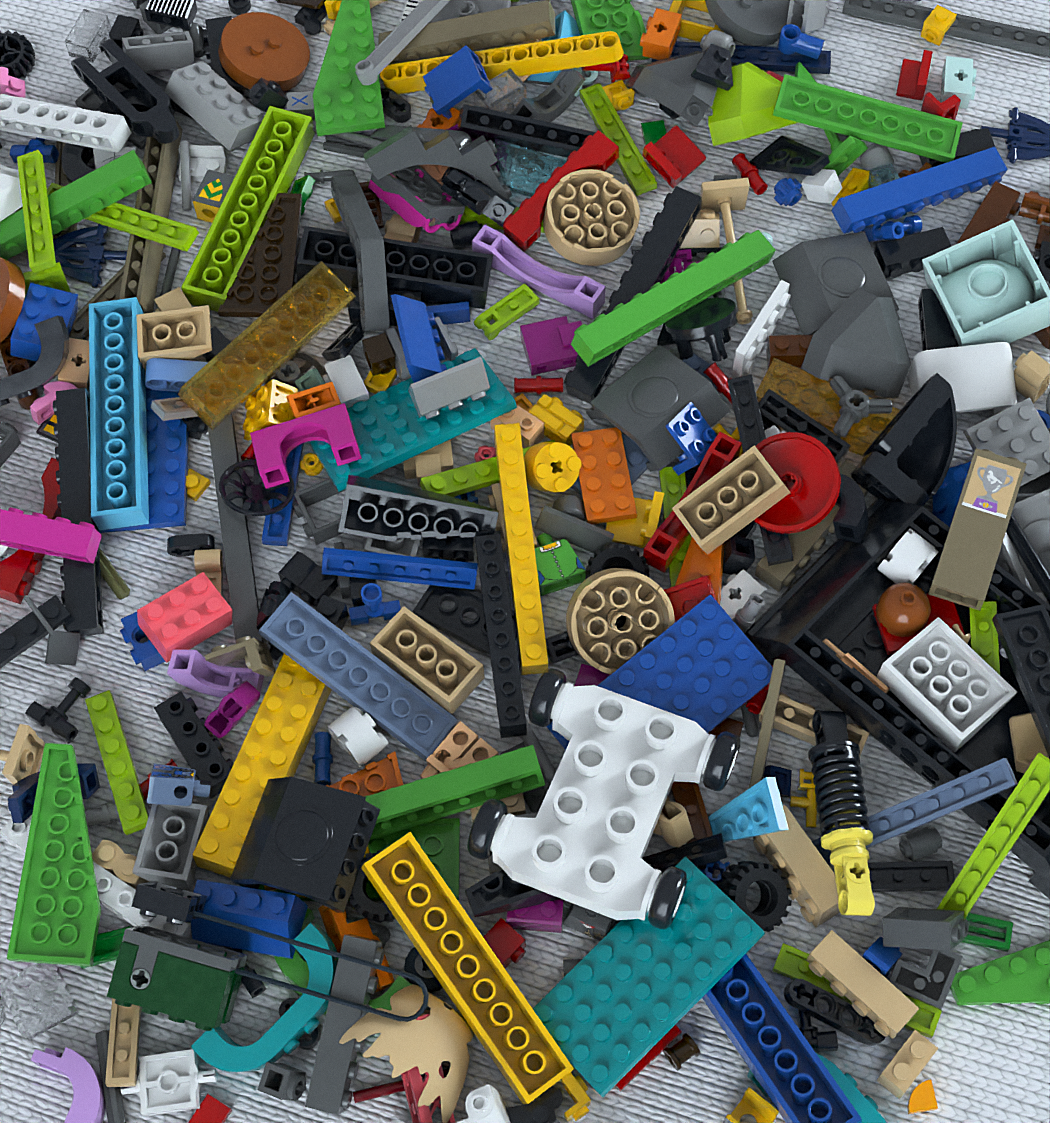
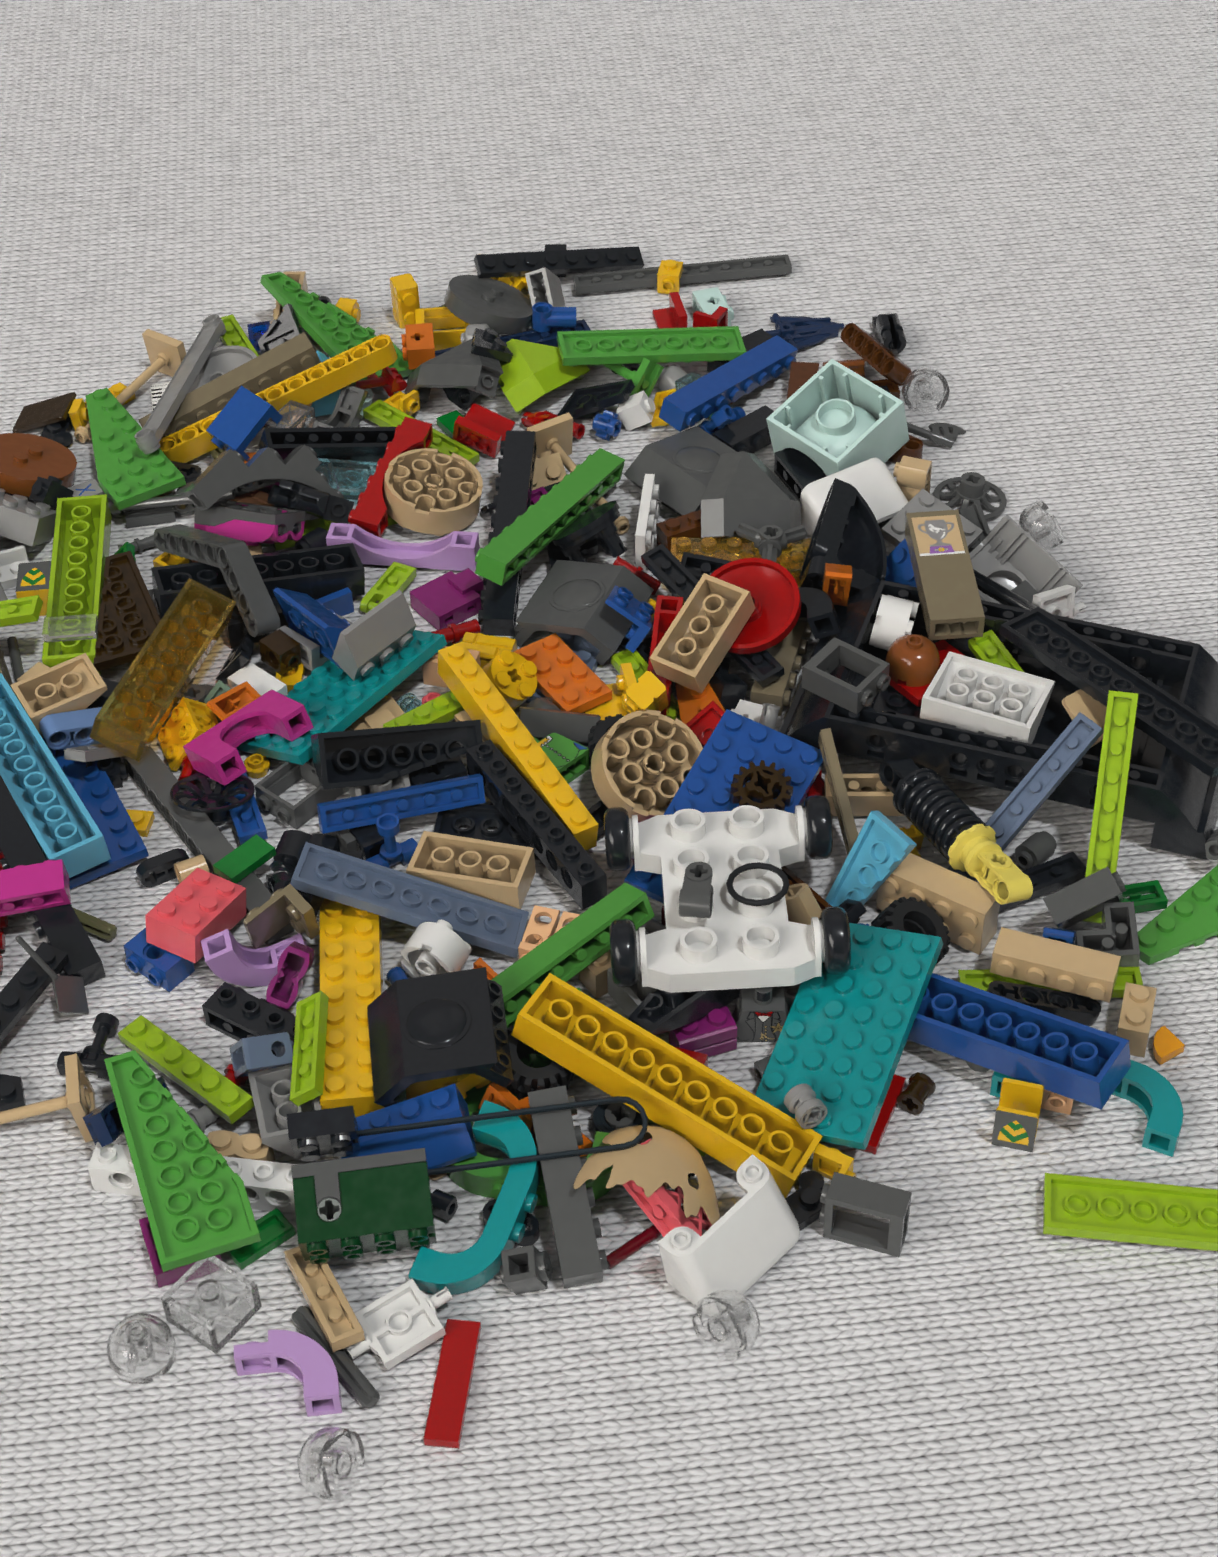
camera: 25 degrees left, 20 degrees down
(205, 801) = (309, 1048): none -> lime plate
(215, 262) = (70, 628): none -> clear tile
(250, 571) = (244, 859): none -> green tile
(463, 453) = (409, 702): none -> clear light blue bush
(566, 808) = (697, 891): none -> dark grey piece
(569, 1044) = (807, 1108): none -> light grey wheel
(632, 836) = (762, 902): none -> black piece
(644, 555) = (646, 694): none -> yellow brick
(710, 694) = (763, 787): none -> dark brown gear
(728, 164) = (535, 418): none -> red pin
(814, 588) = (818, 680): none -> dark grey window
(881, 488) = (837, 582): none -> orange slope

